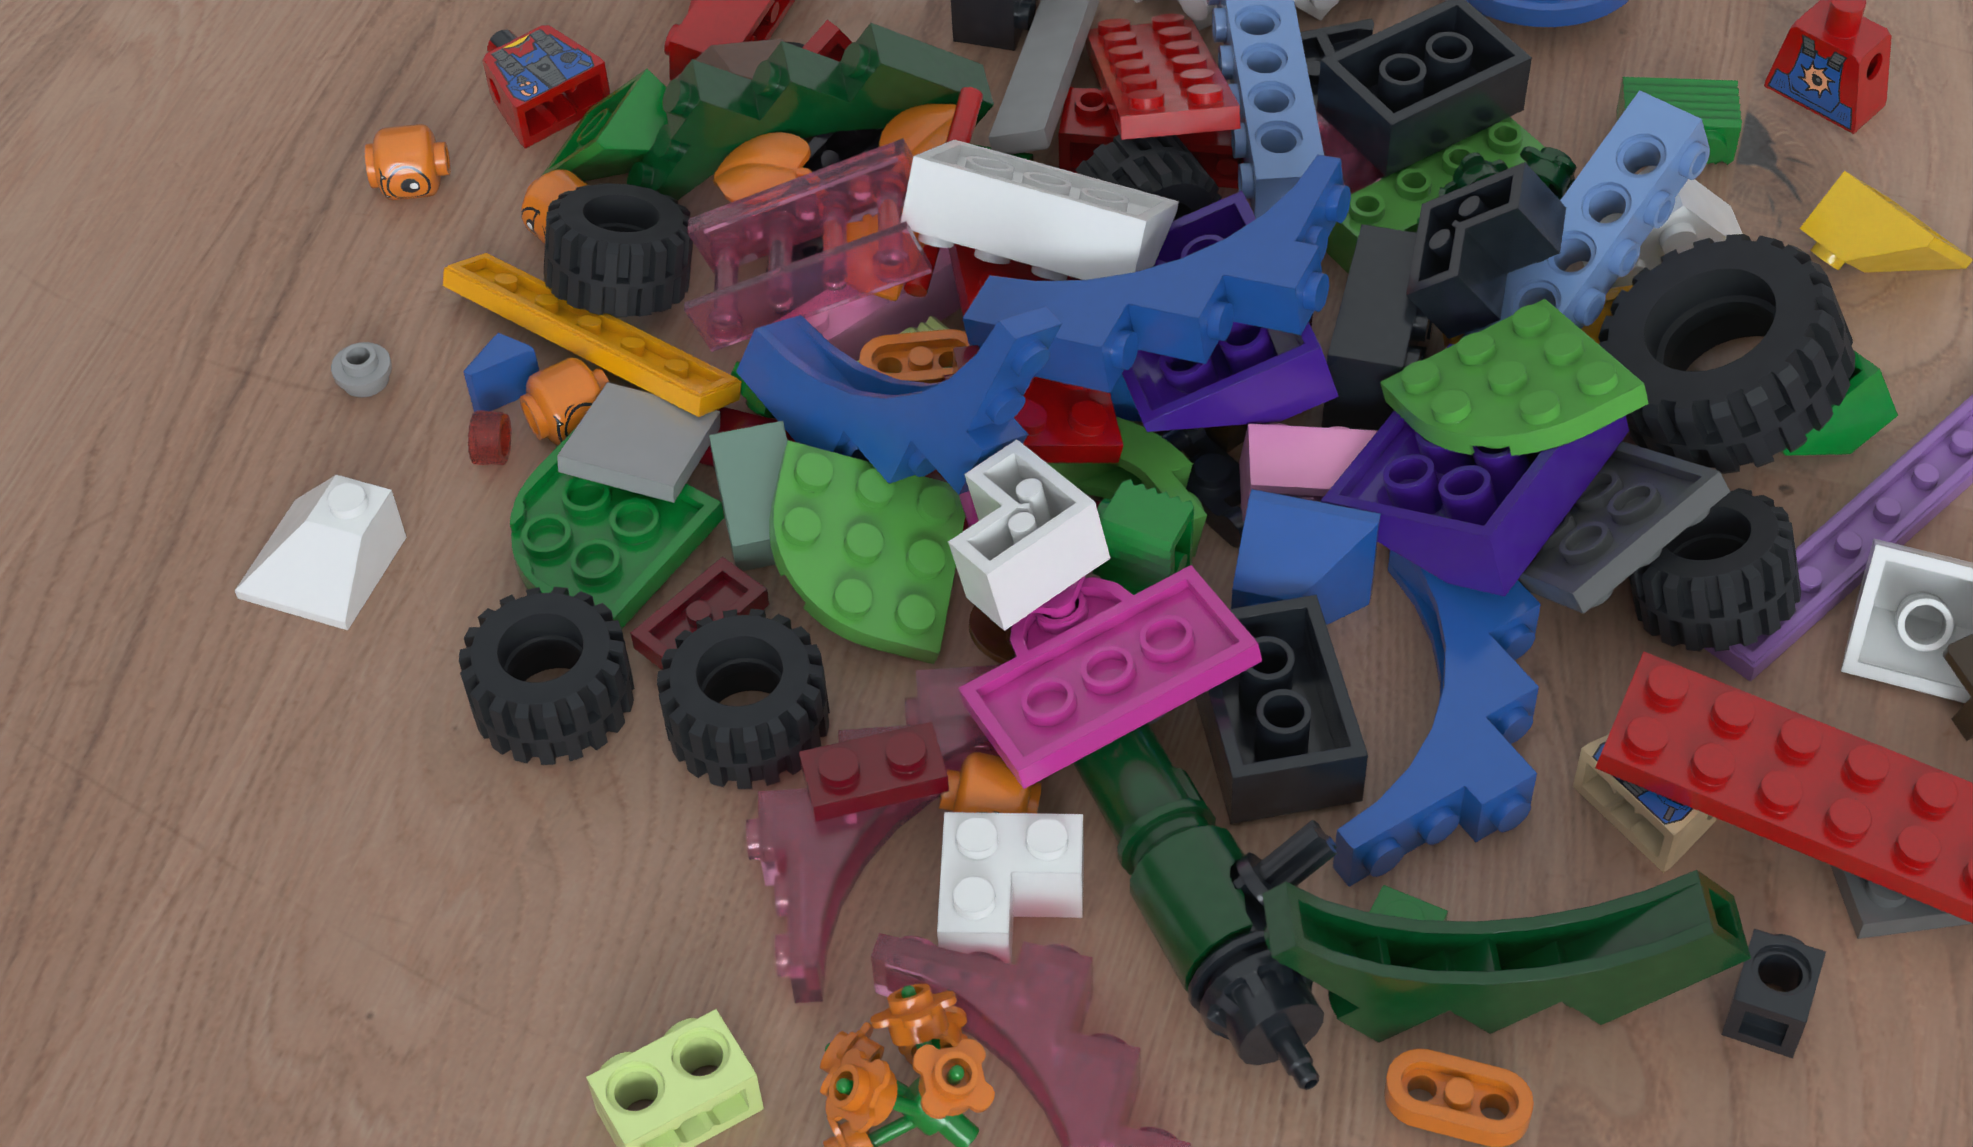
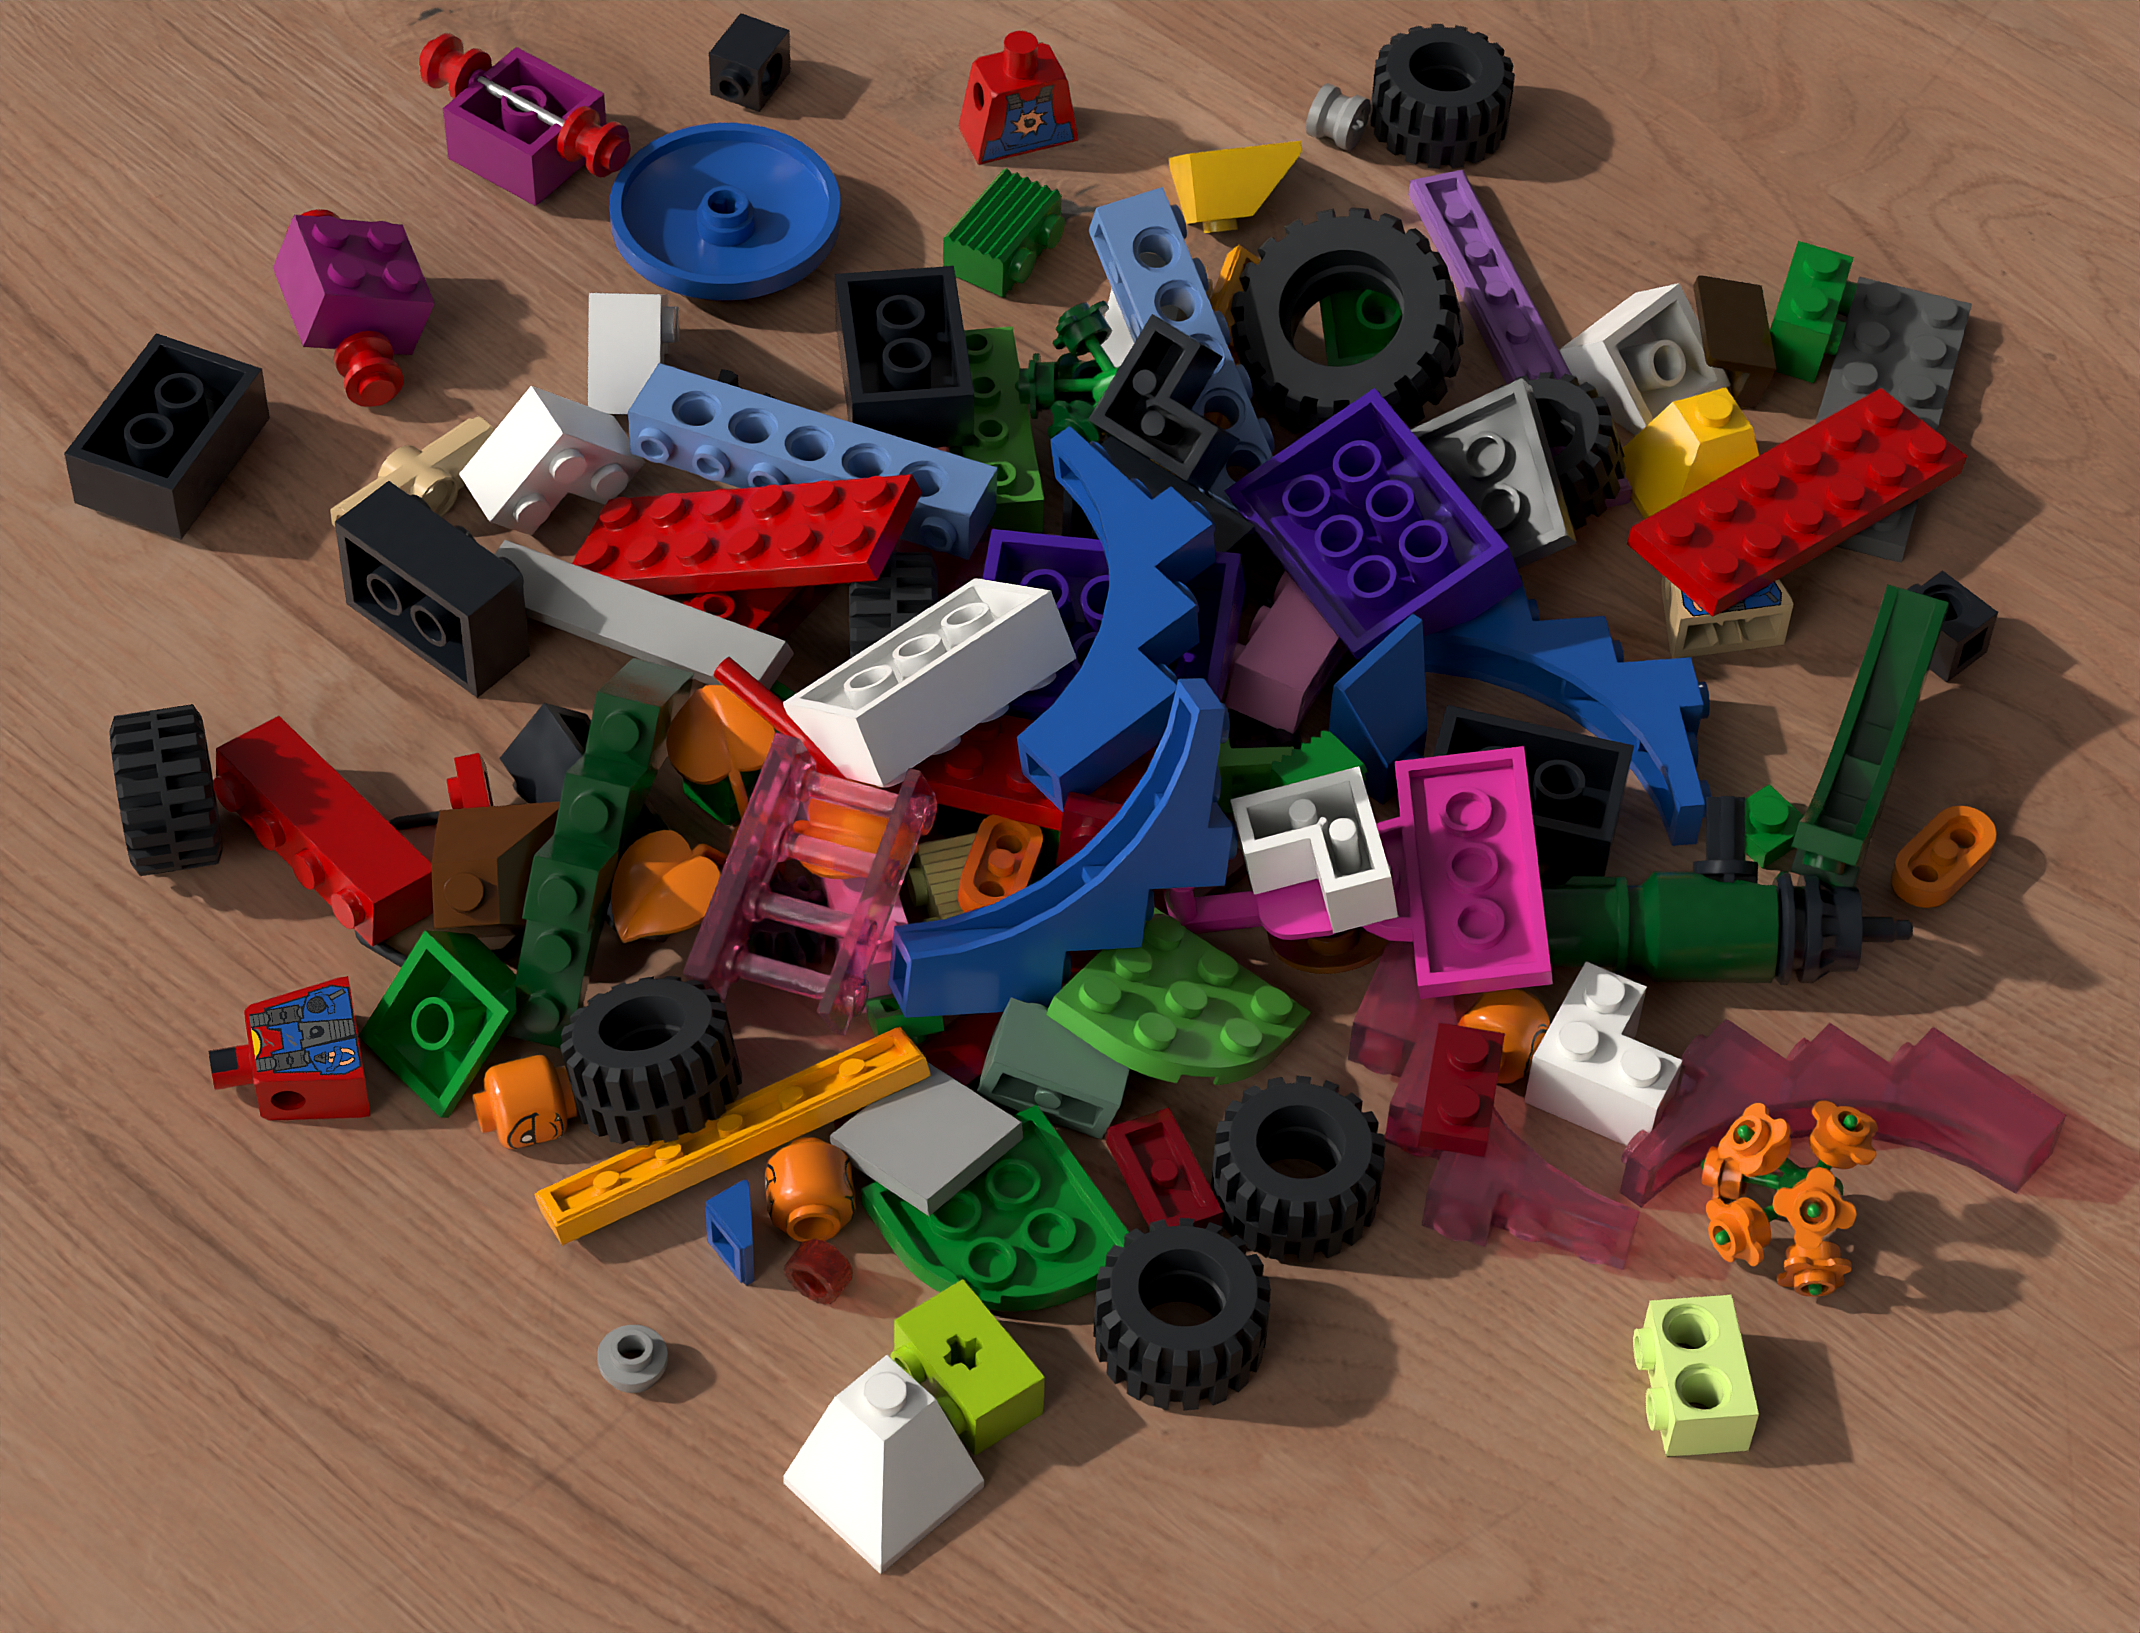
camera: 70 degrees left, 0 degrees up
(406, 162) = (342, 1218): orange head -> none
(436, 562) = (969, 1366): none -> lime brick
(1515, 386) = (1340, 460): bright green plate -> none
(1839, 685) = (1687, 449): none -> yellow slope

